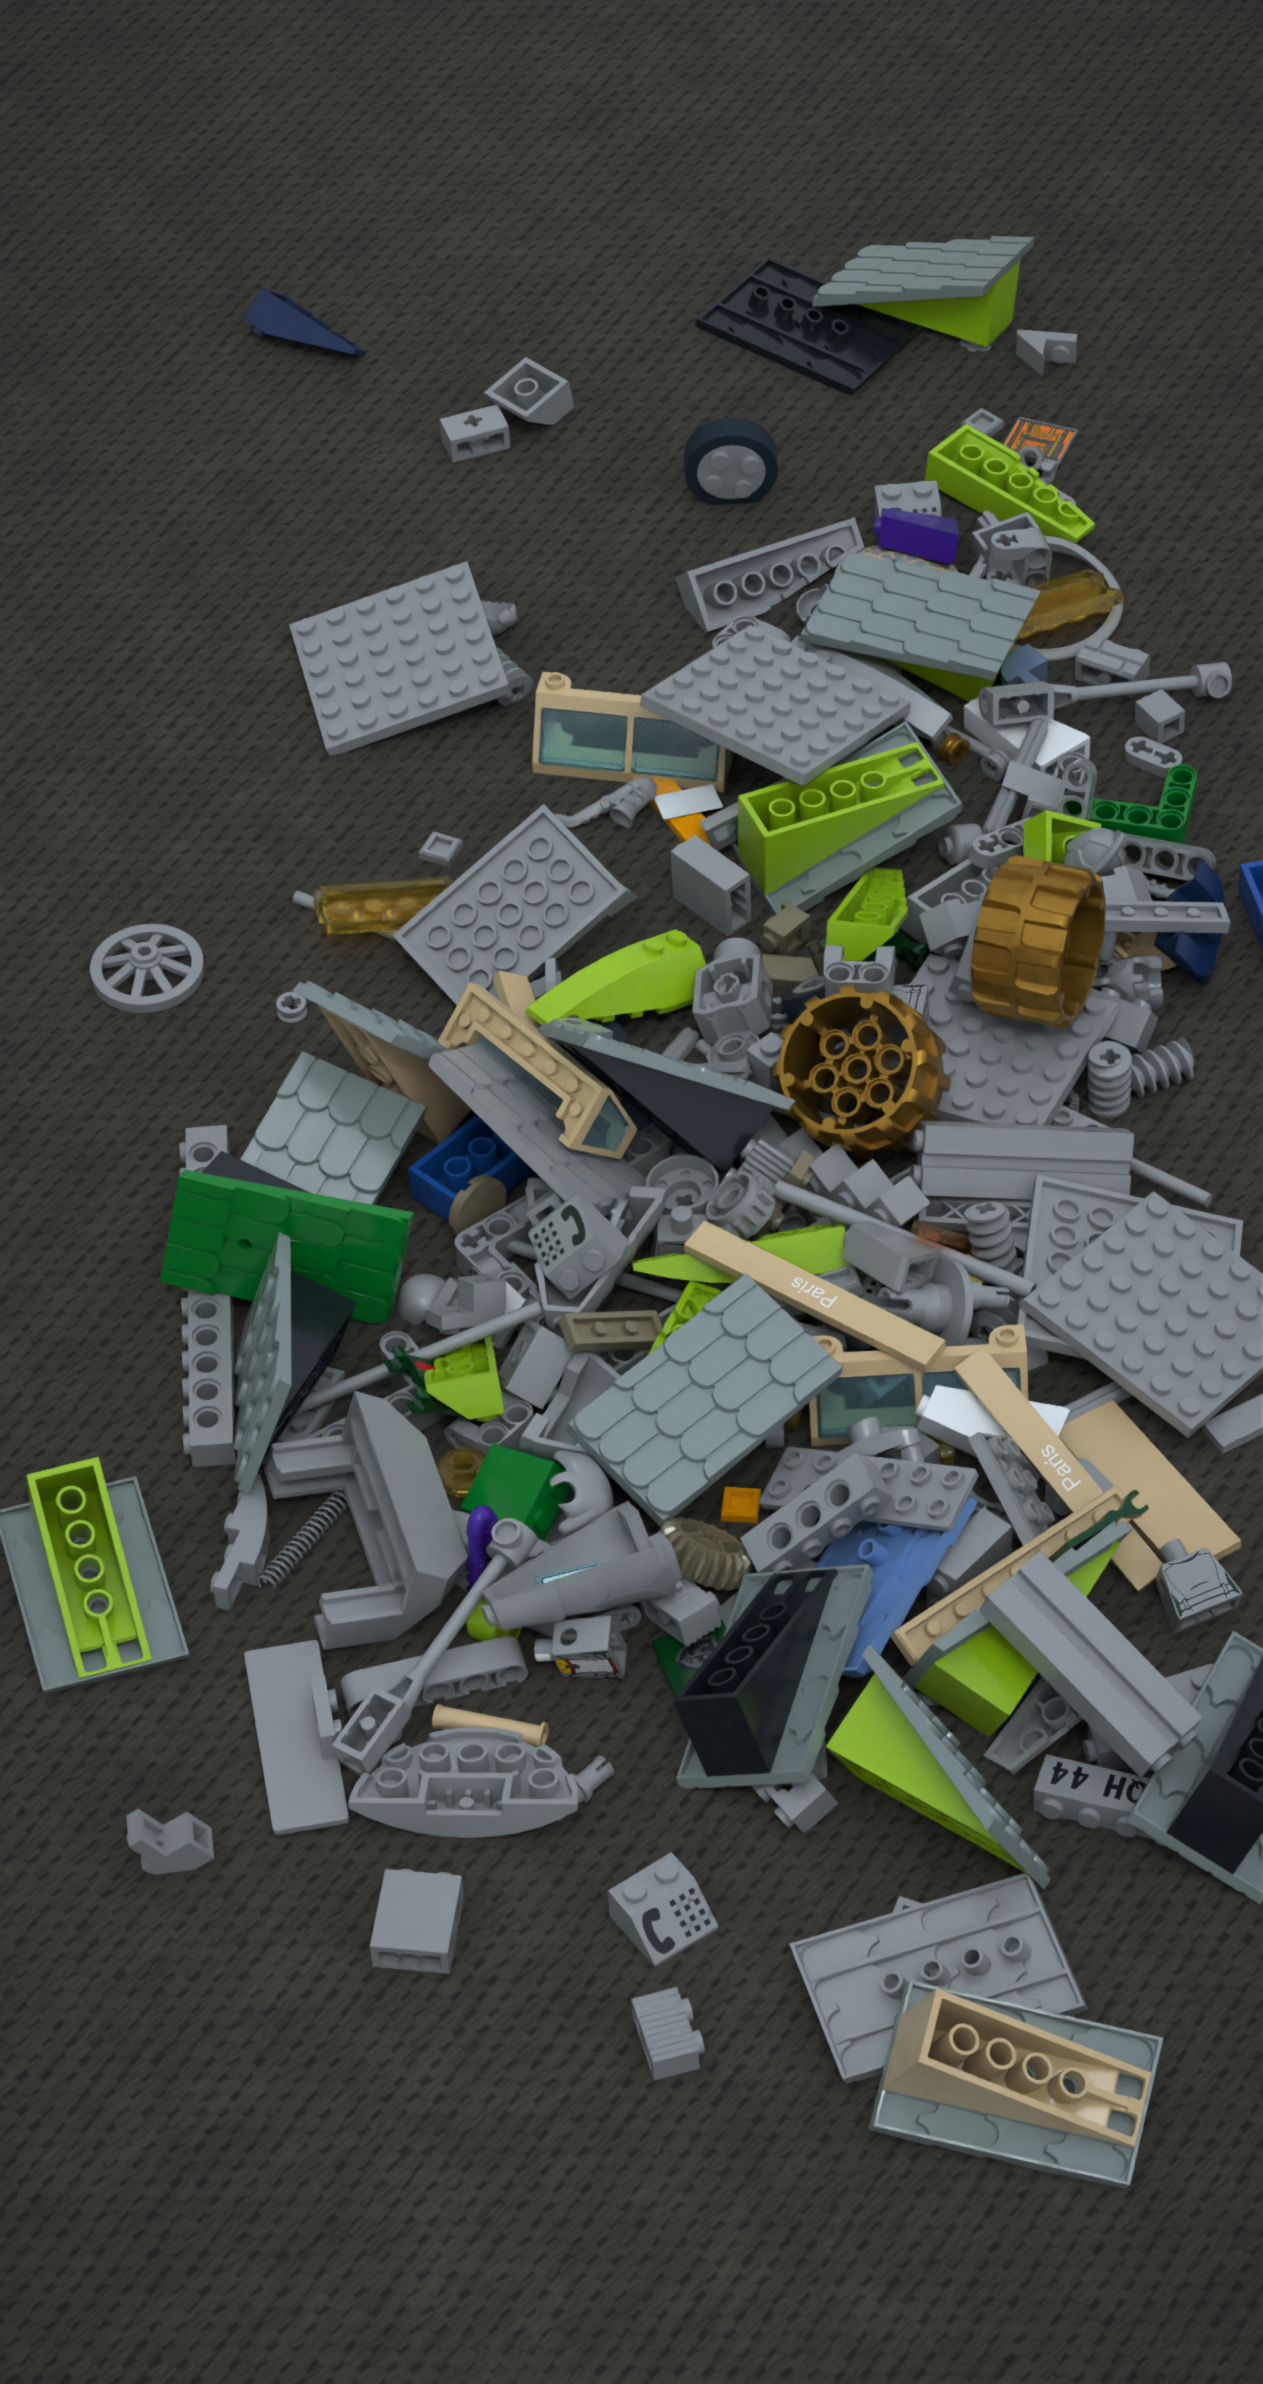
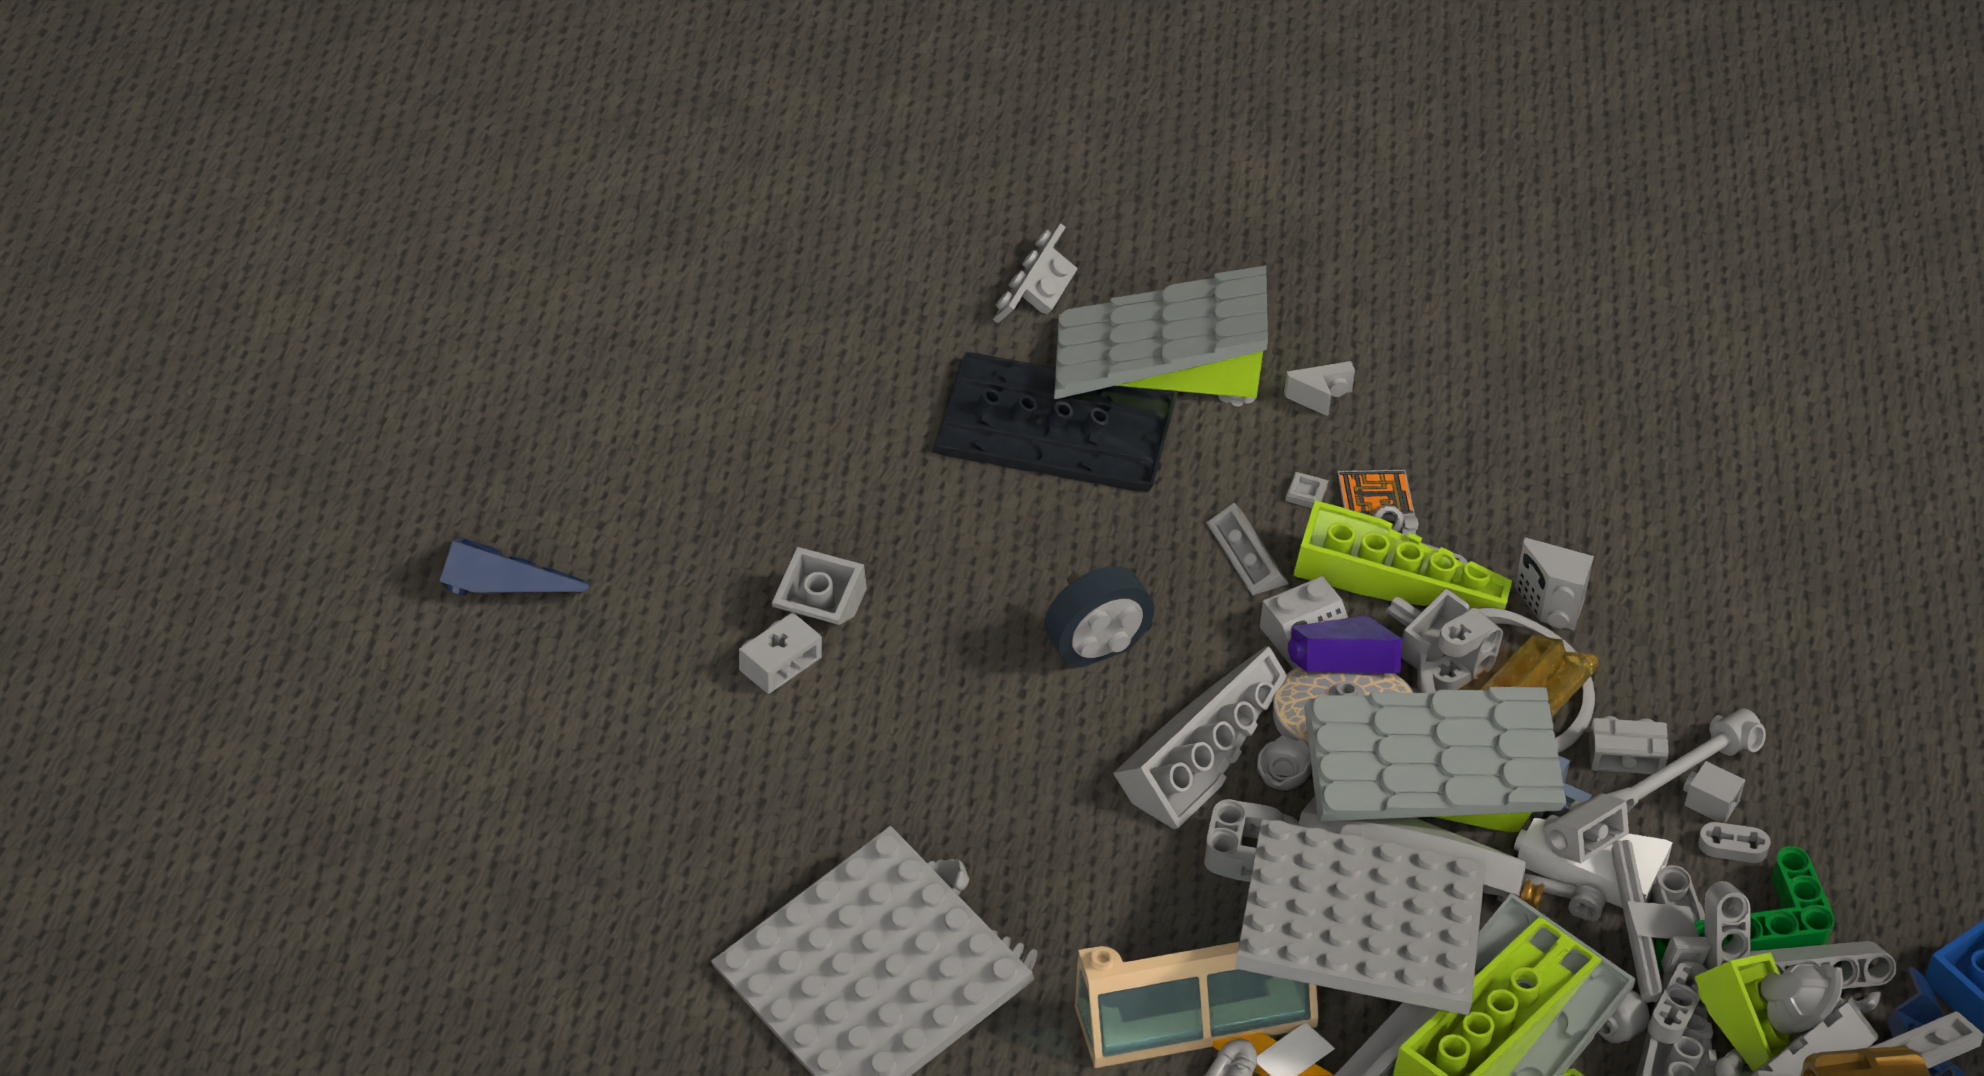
camera: 30 degrees left, 0 degrees up
(869, 219) = (1043, 278): none -> light grey bracket
(906, 452) = (1248, 549): none -> light grey slope
(1133, 534) = (1553, 582): none -> light grey slope

